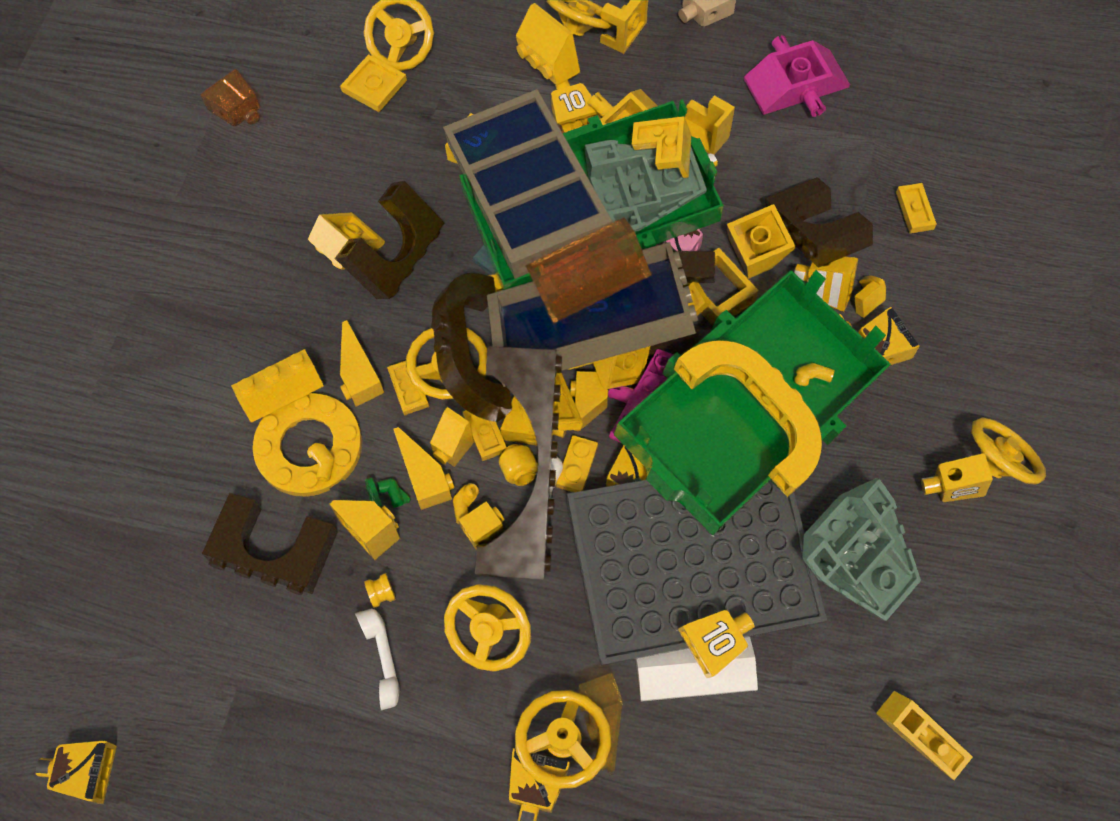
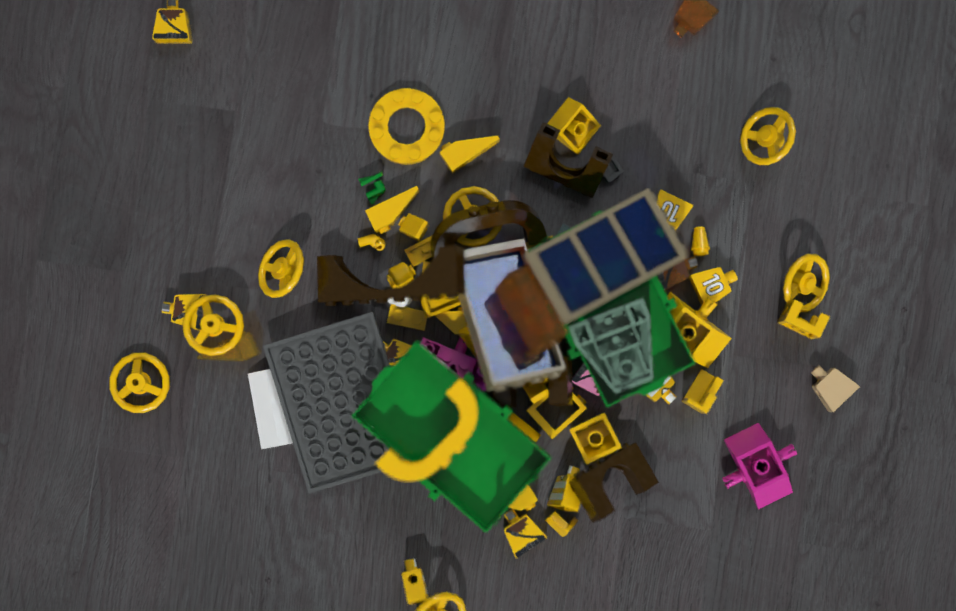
camera: 80 degrees right, 20 degrees up
(277, 385) = (446, 96): yellow slope -> none
(297, 569) = (324, 88): dark brown arch -> none
(323, 458) = (392, 140): yellow arm -> none
(368, 524) = (344, 178): yellow slope -> none
(373, 83) = (722, 122): yellow plate -> none
(374, 627) = (278, 193): white piece -> none
(379, 590) = (303, 193): yellow wheel -> none
(409, 396) = (445, 191): yellow plate -> none
(482, 524) = (355, 256): yellow brick -> none
(547, 45) = (761, 258): yellow slope -> none
(671, 140) = (648, 363): yellow panel -> none
(716, 640) = (284, 419): yellow torso -> none
(812, 371) = (481, 478): yellow arm -> none
(862, 550) = (353, 514): sand green wedge -> none
(916, 208) = (643, 560): yellow plate -> none
(924, 734) = (239, 555): yellow slope -> none

